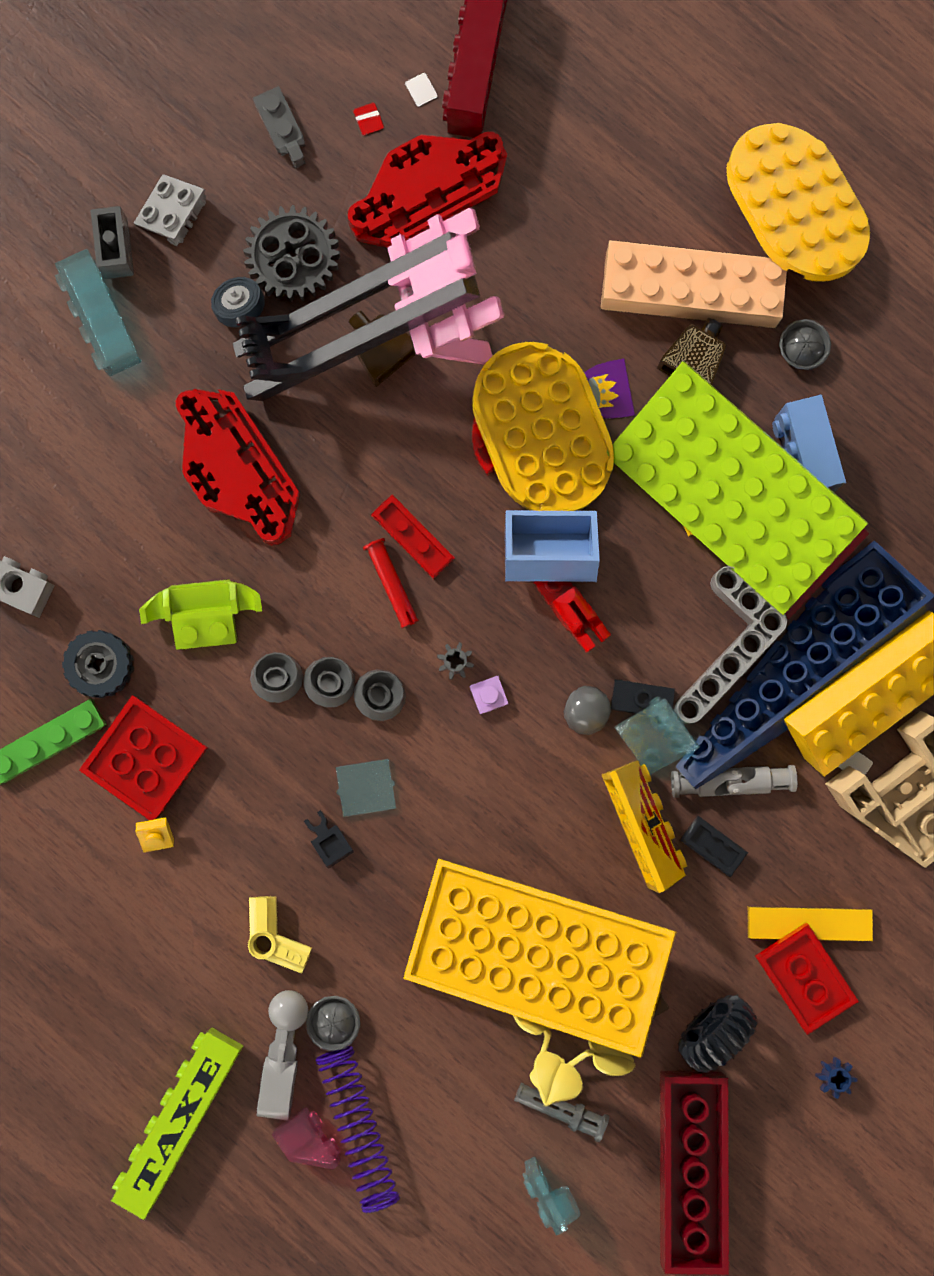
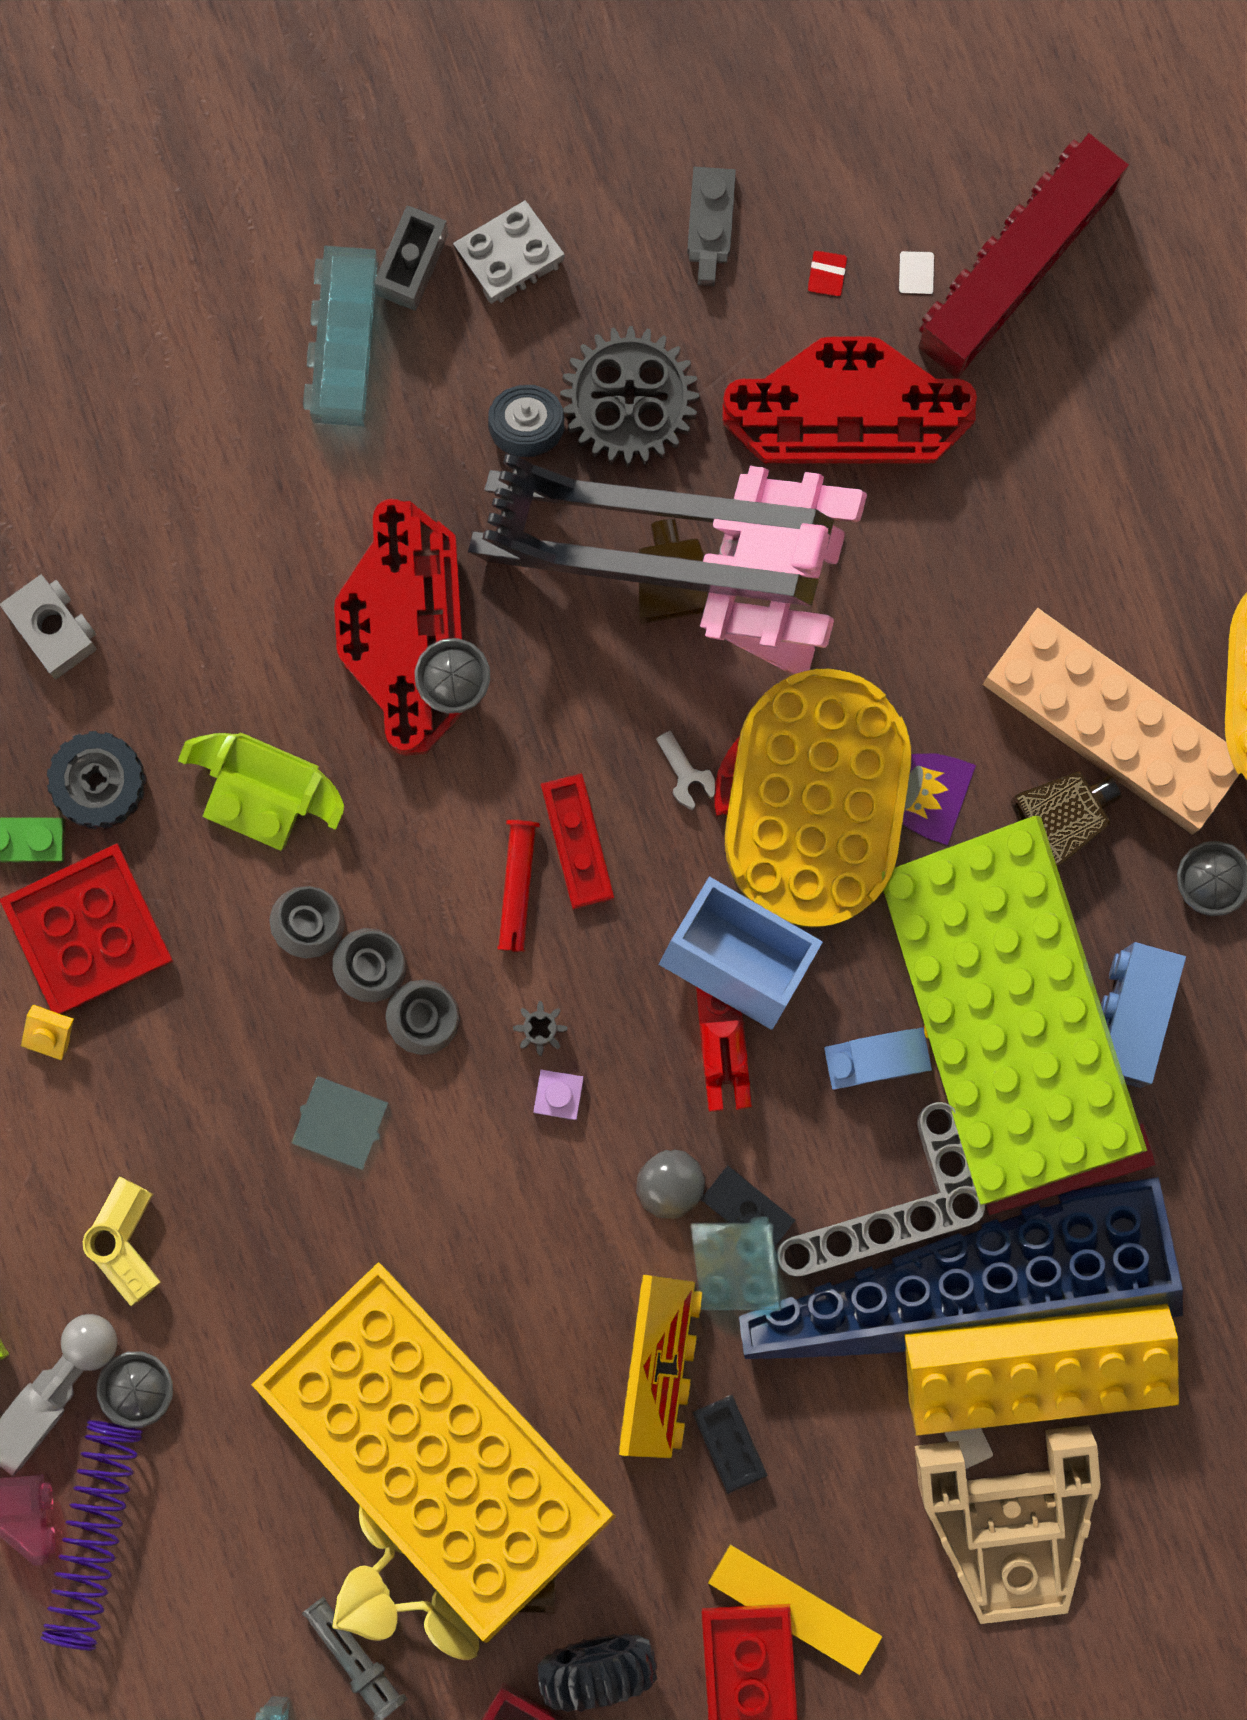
camera: 30 degrees right, 0 degrees up
(280, 476) = (452, 675): none -> dark grey hat
(330, 842) = (256, 1167): black plate -> none
(454, 459) = (685, 772): none -> light grey bar
(668, 563) = (877, 1058): none -> medium blue brick
(759, 781) = (834, 1395): light grey piece -> none

